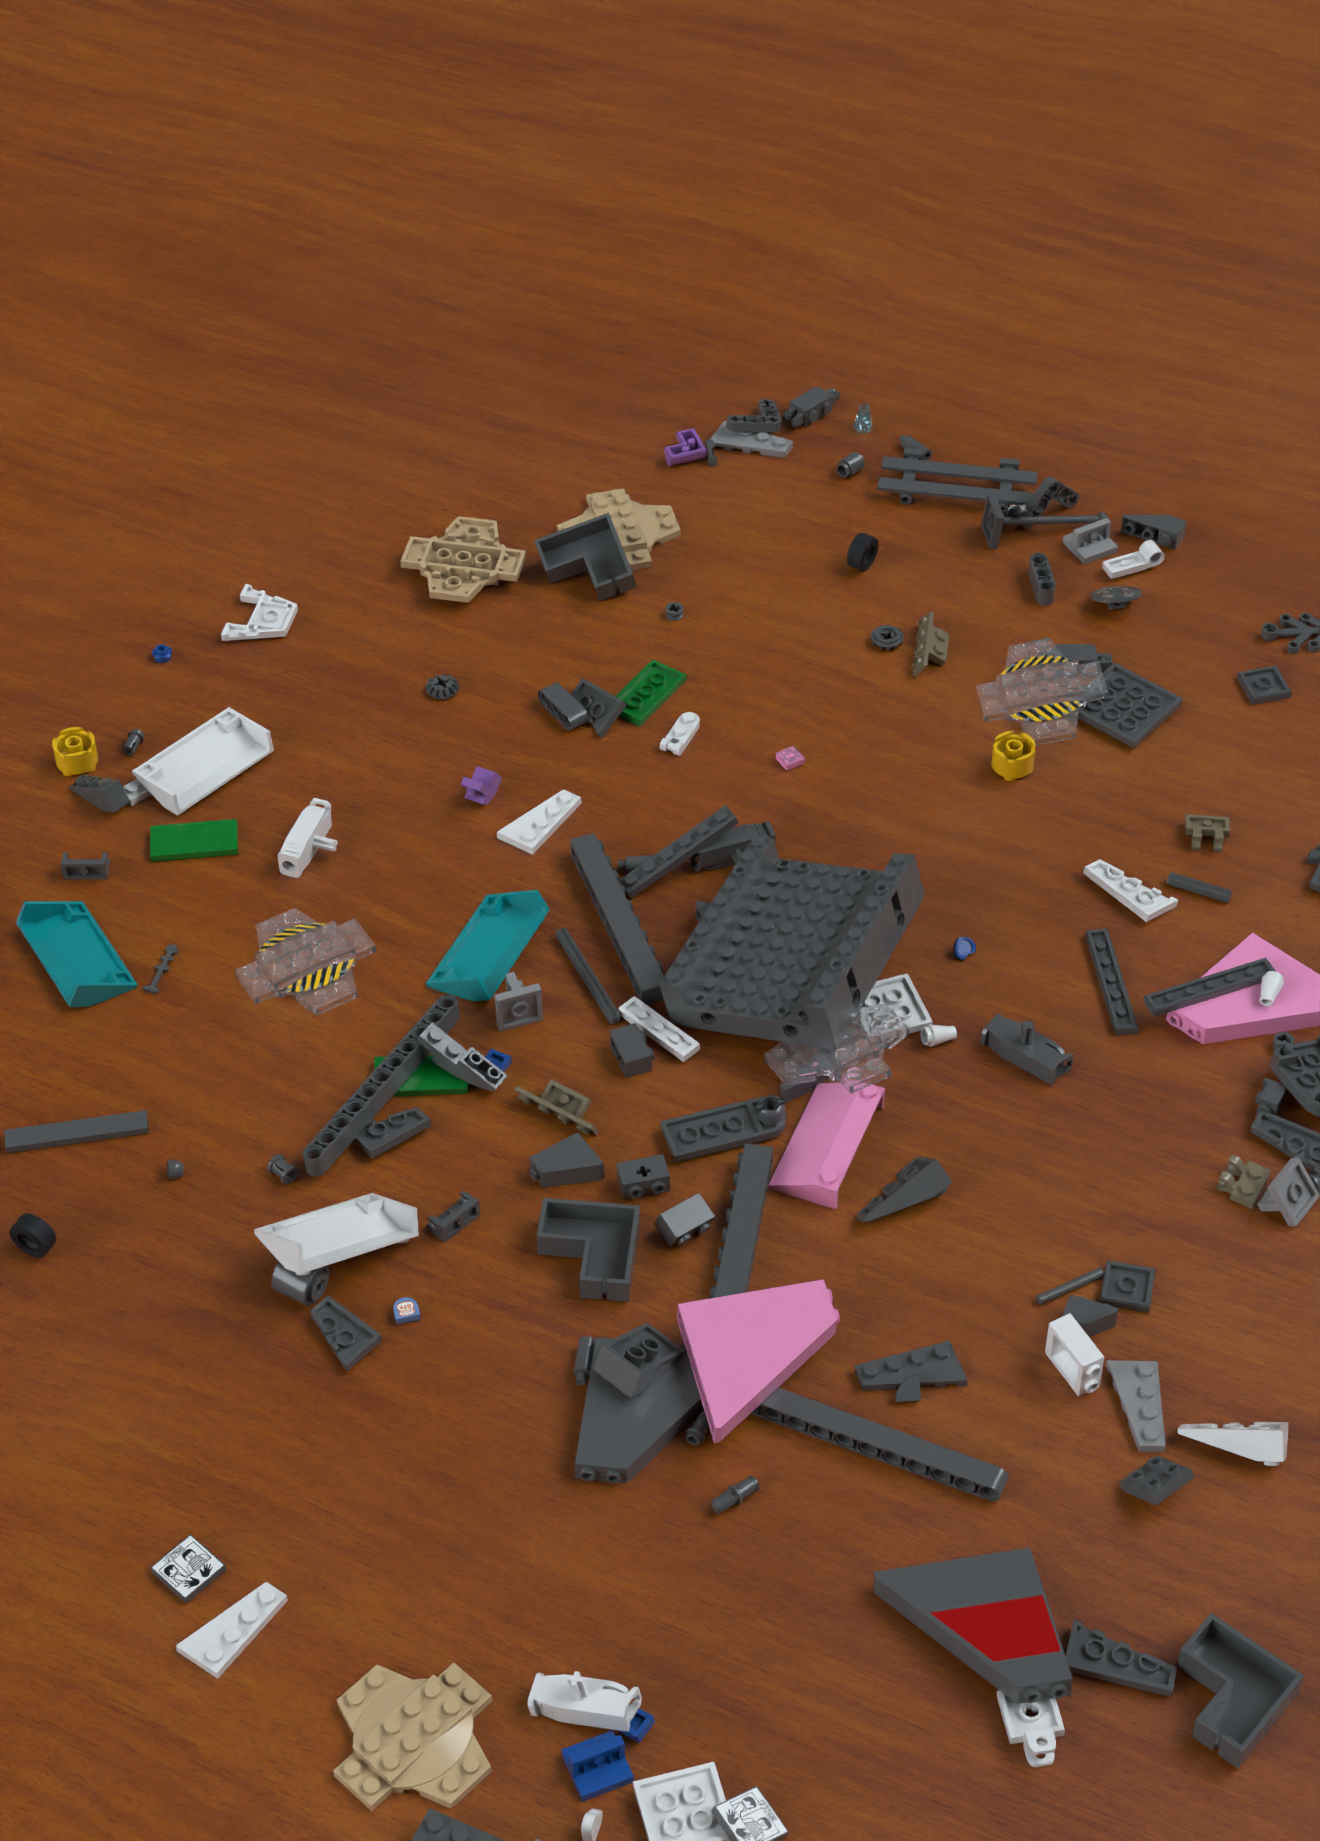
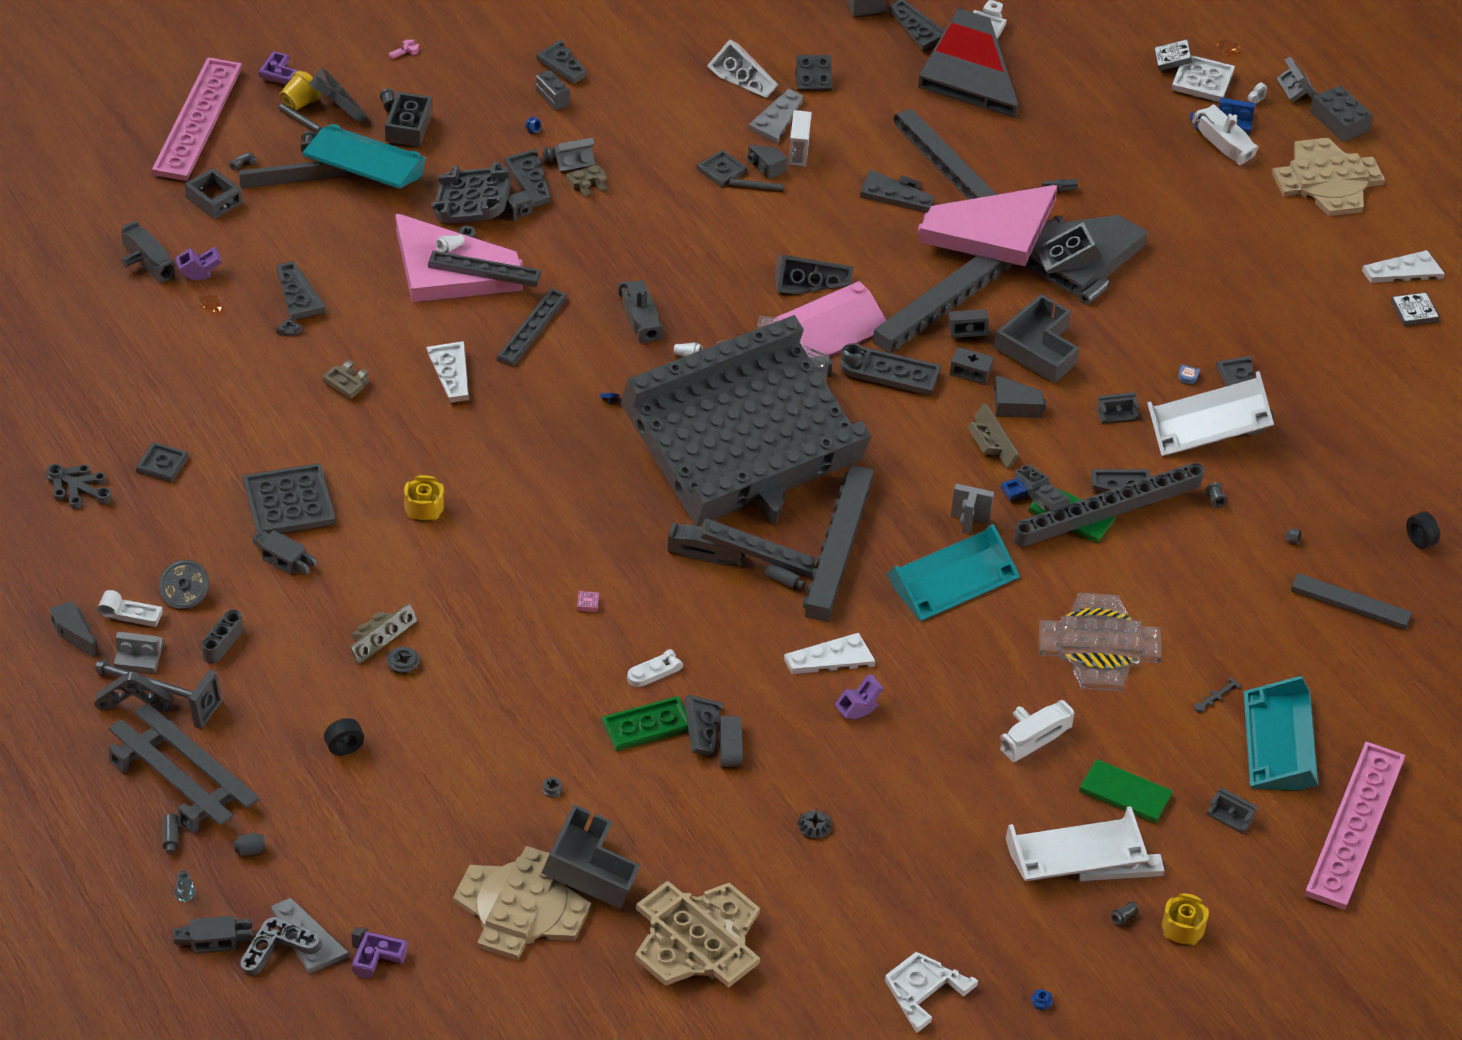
camera: 150 degrees left, 0 degrees up
(102, 792) = (1181, 869): dark grey slope -> none
(588, 976) = (895, 518): dark grey axle -> none
(631, 1047) = (911, 446): dark grey piece -> none
(659, 1029) = (879, 455): white plate -> none
(1015, 511) = (176, 699): dark grey axle -> none
(1042, 691) = (343, 534): clear plate -> none
(1199, 887) = (399, 350): dark grey axle -> none

